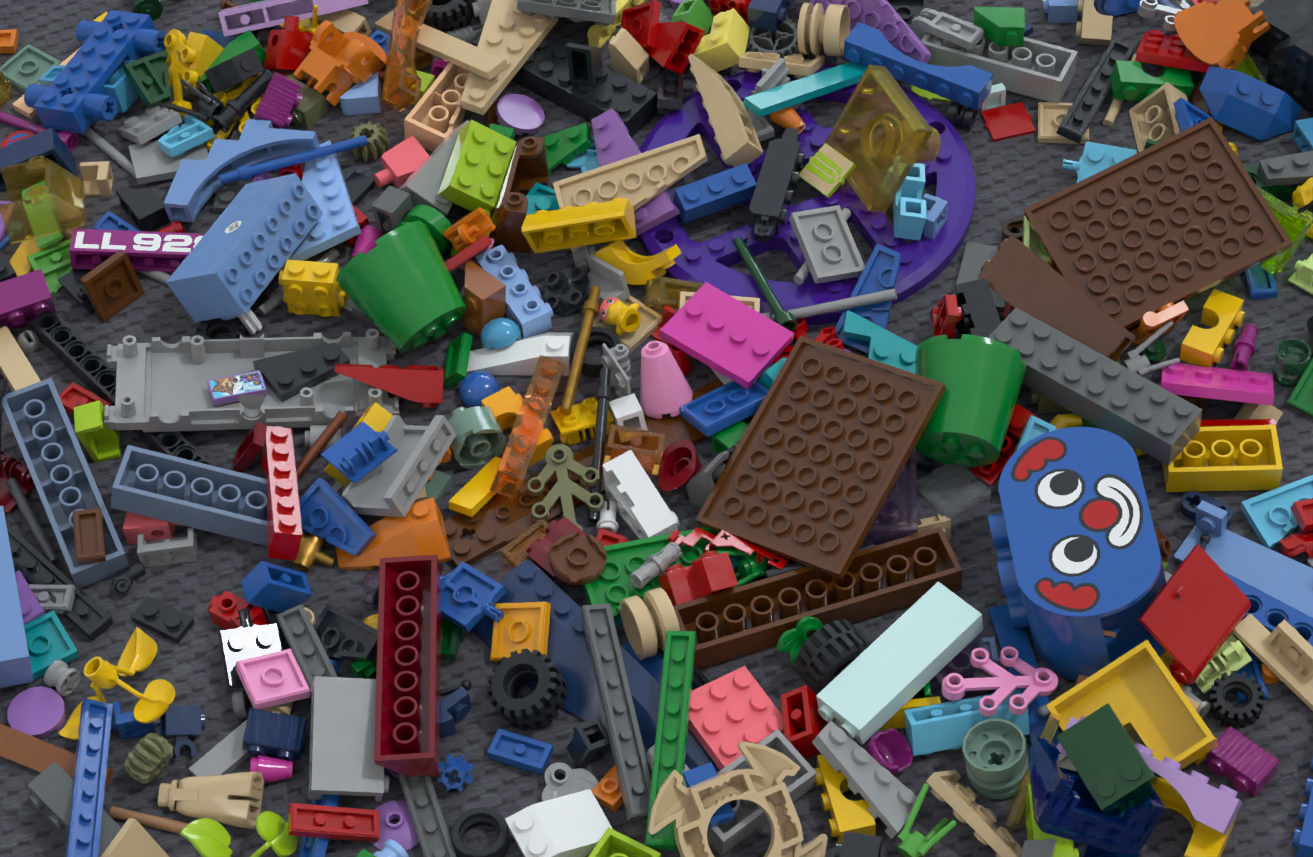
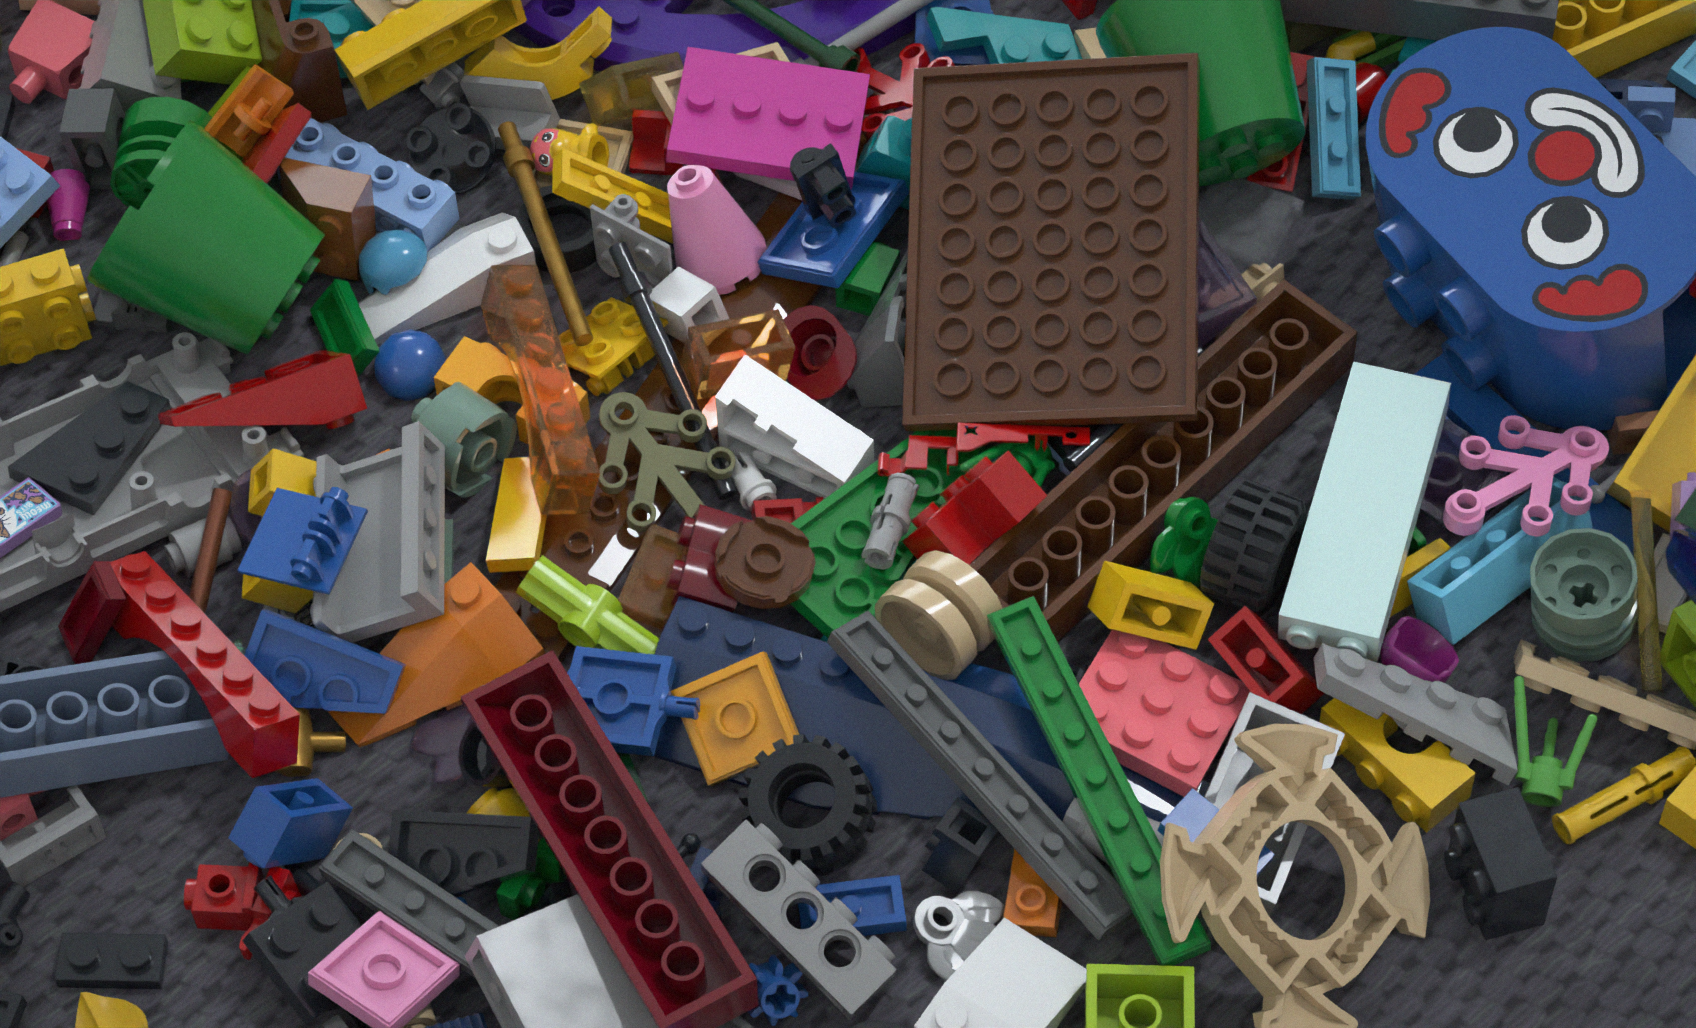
camera: 30 degrees left, 5 degrees up
(464, 702) = (844, 986): none -> light grey brick
(478, 546) = (584, 613): none -> lime piece
(614, 331) = (595, 184): none -> yellow plate
(726, 379) = (823, 184): none -> black hips
(761, 664) = (1150, 605): none -> yellow brick

